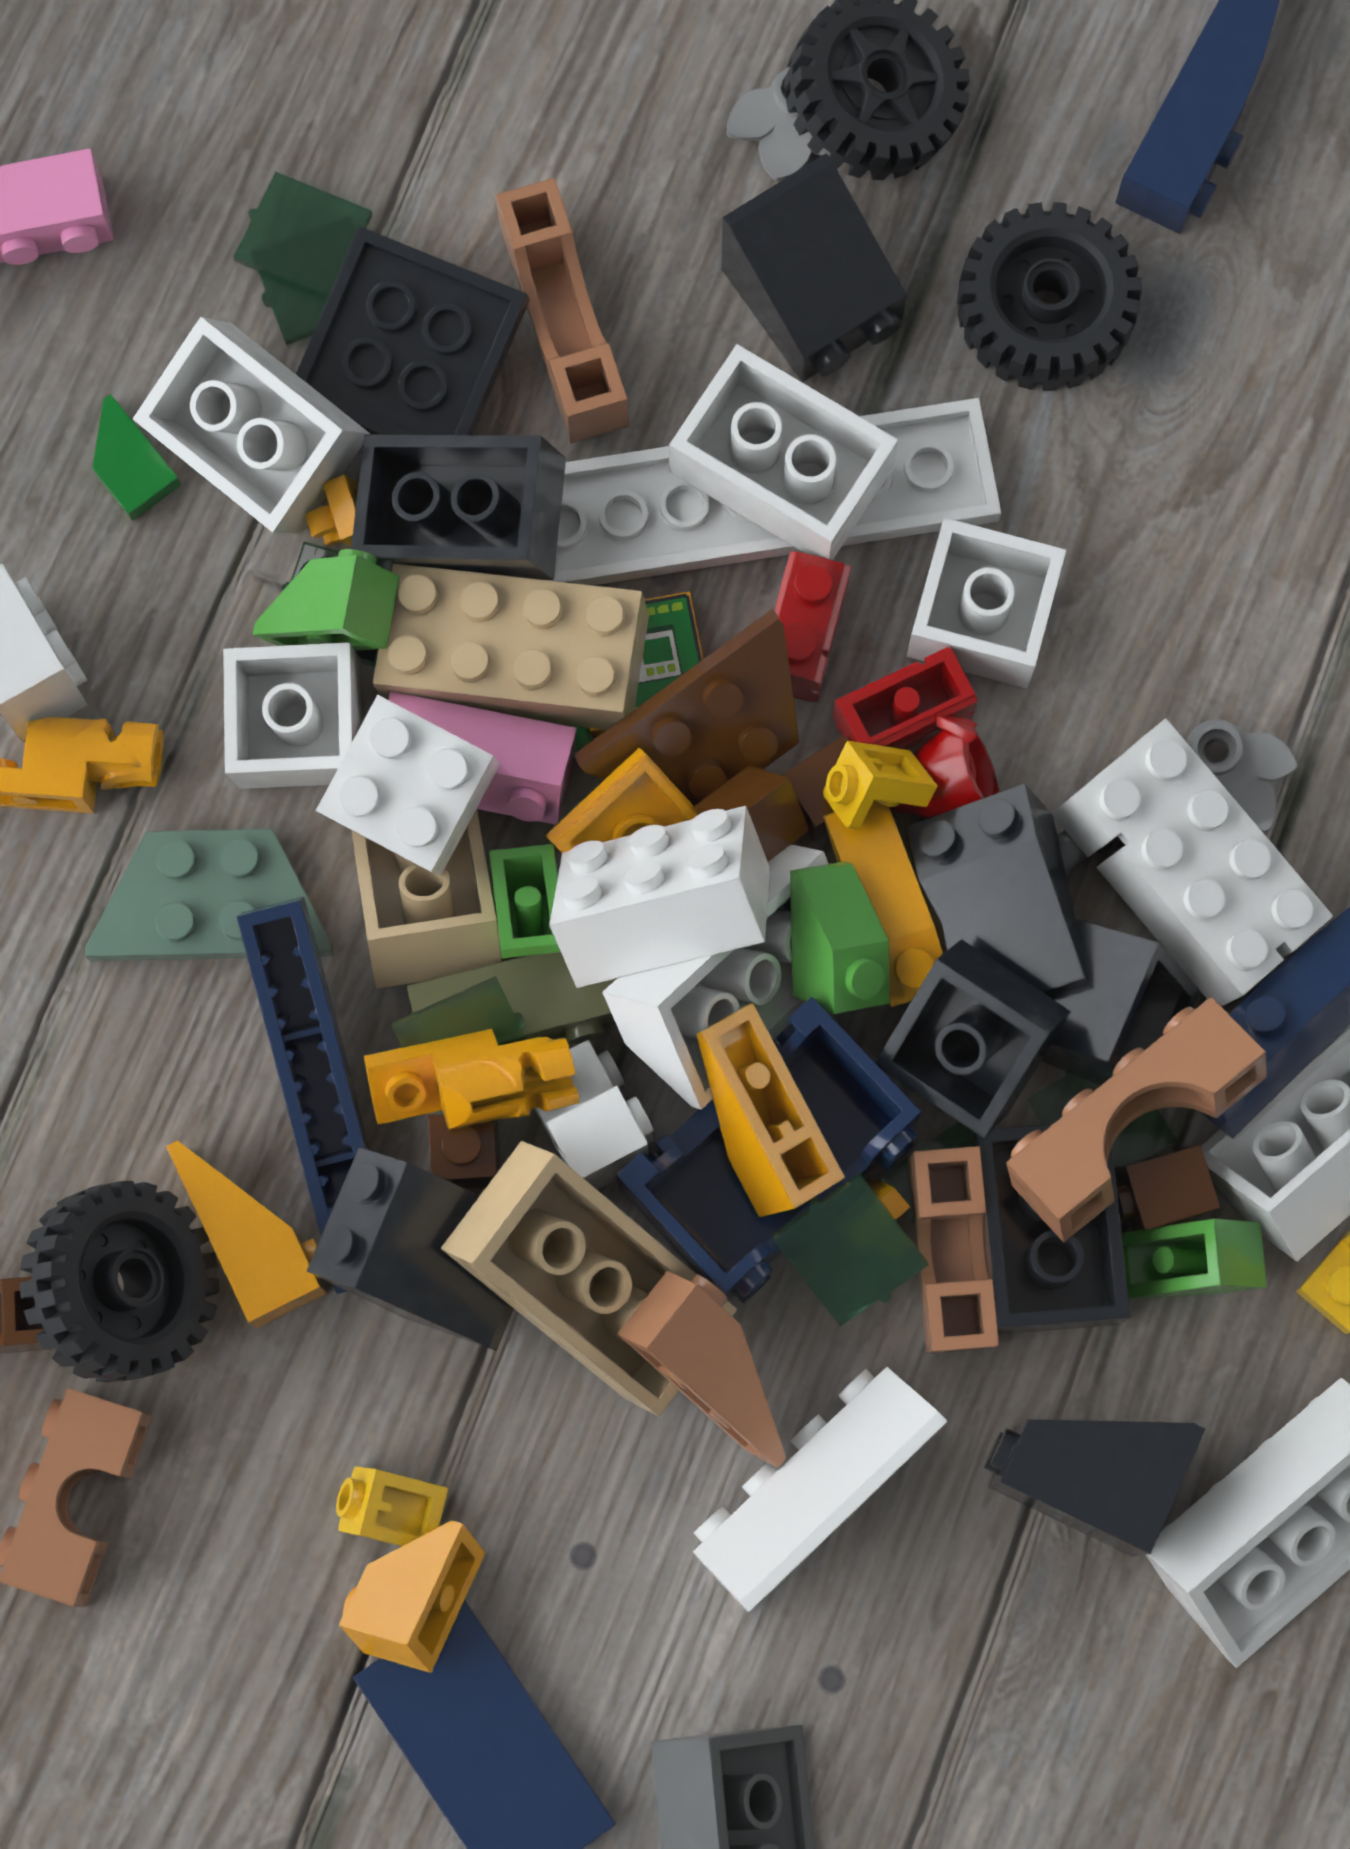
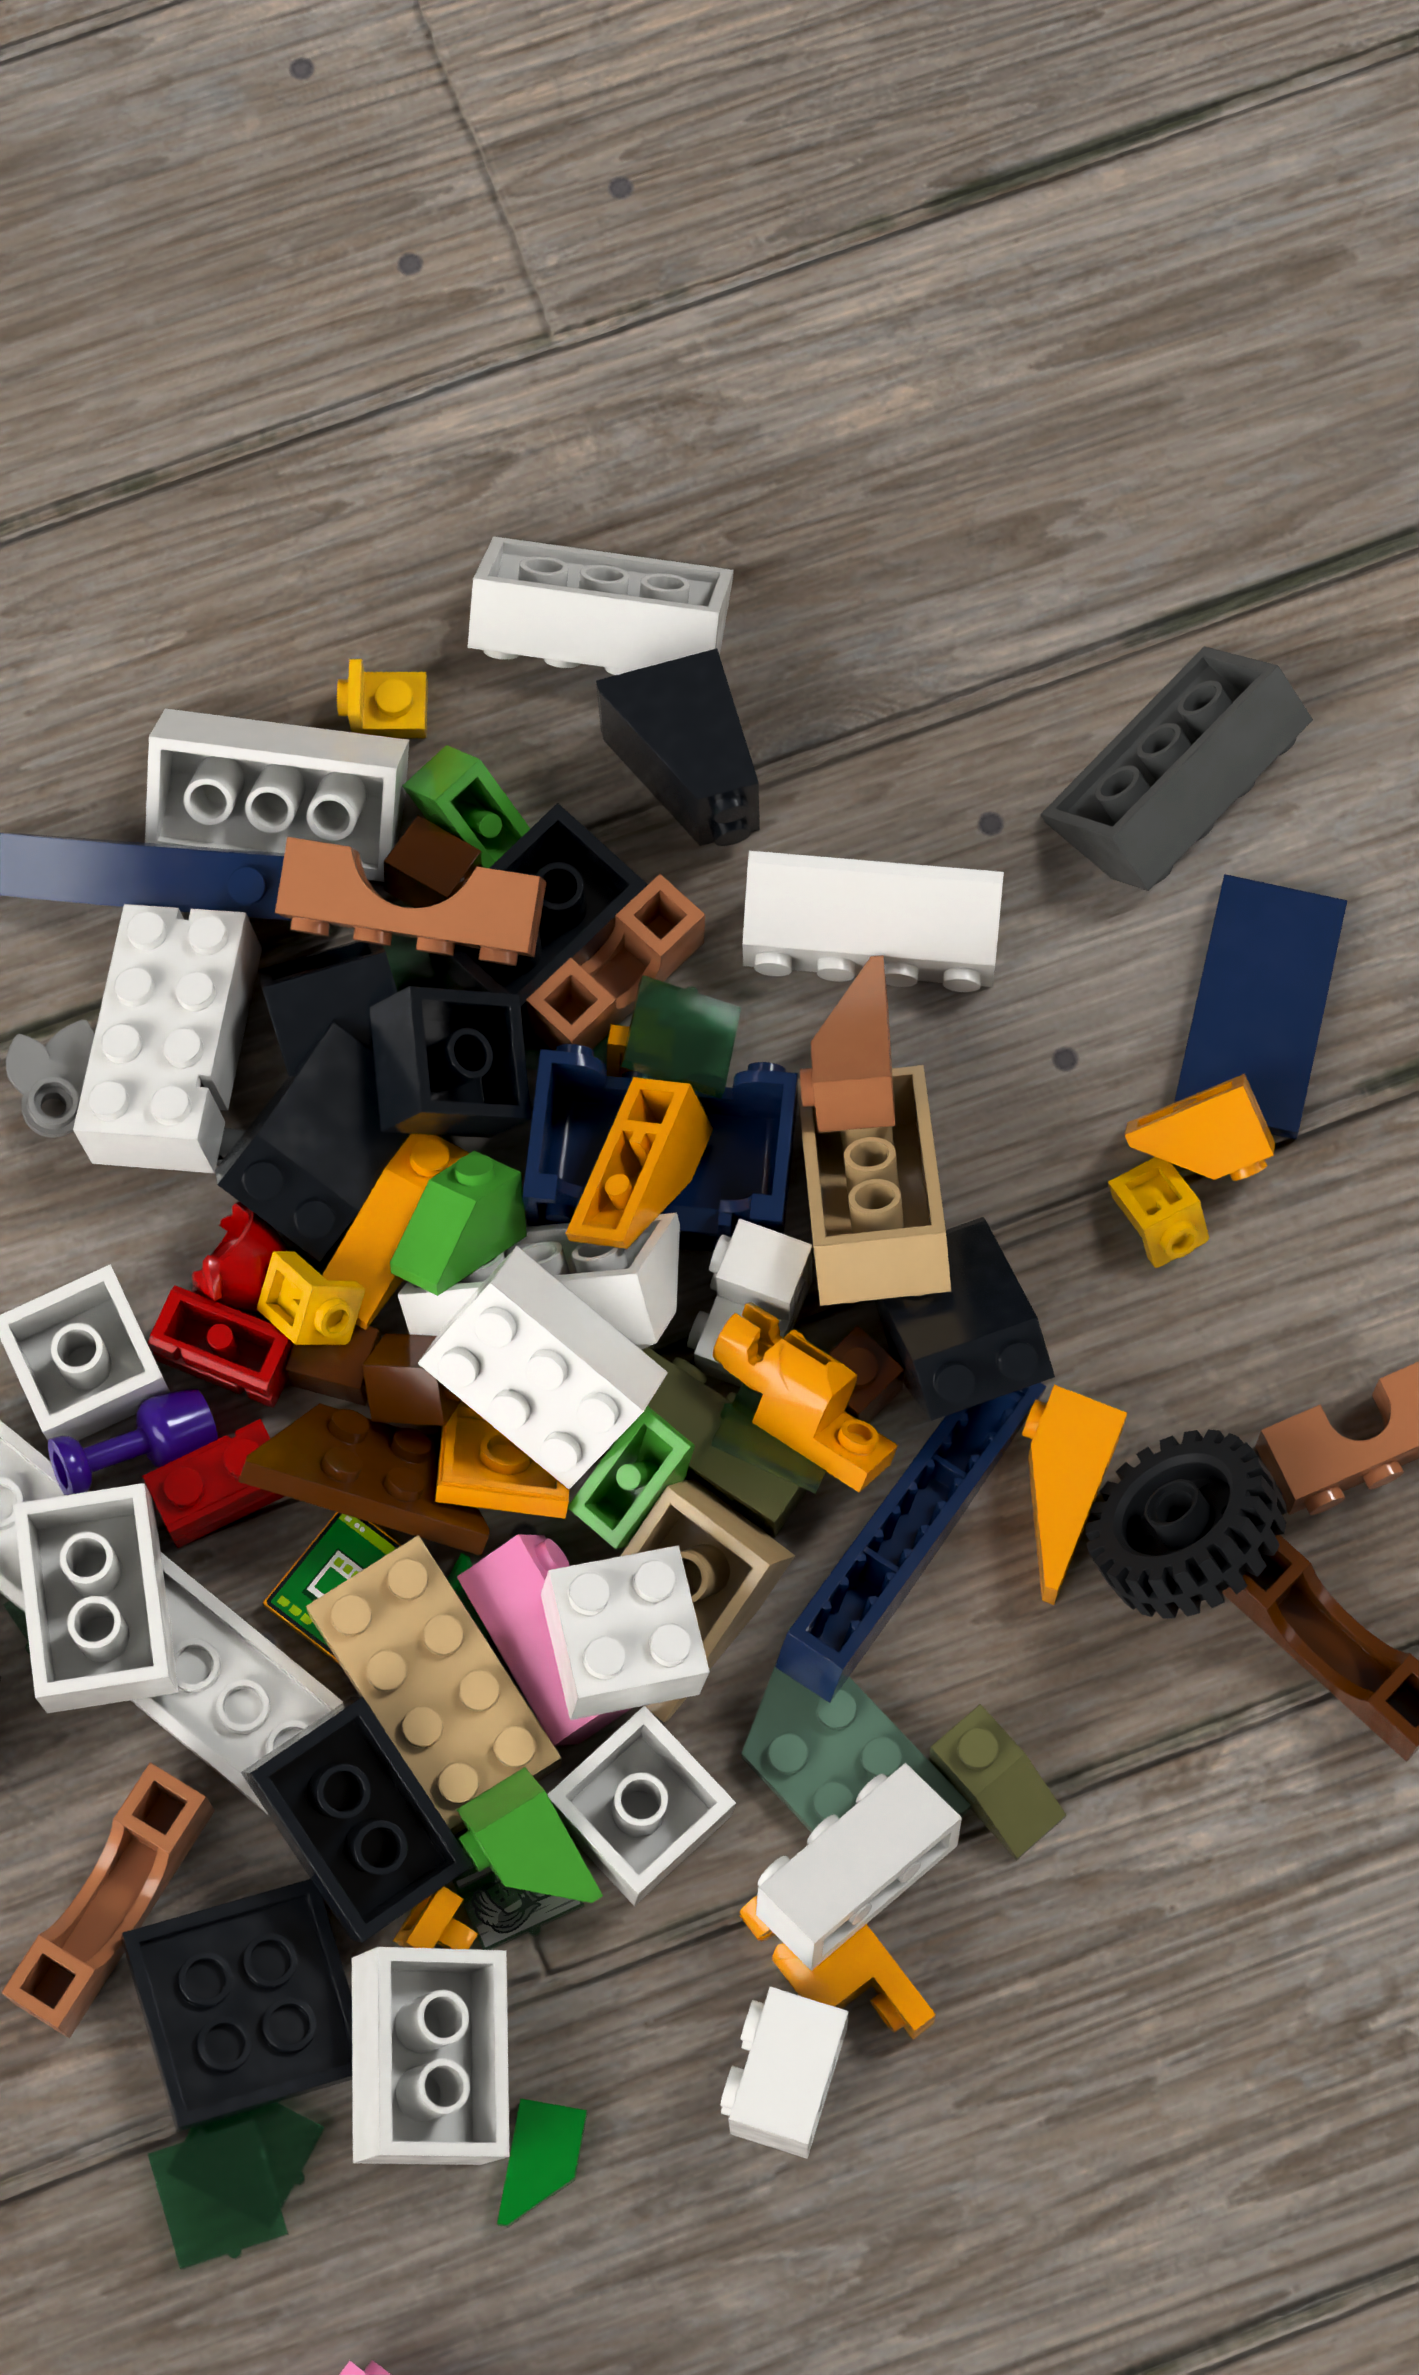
camera: 130 degrees left, 5 degrees down
(85, 987) = (997, 1781): none -> olive slope
(102, 817) = (856, 1864): none -> white brick
(875, 625) = (165, 1431): none -> dark purple piece

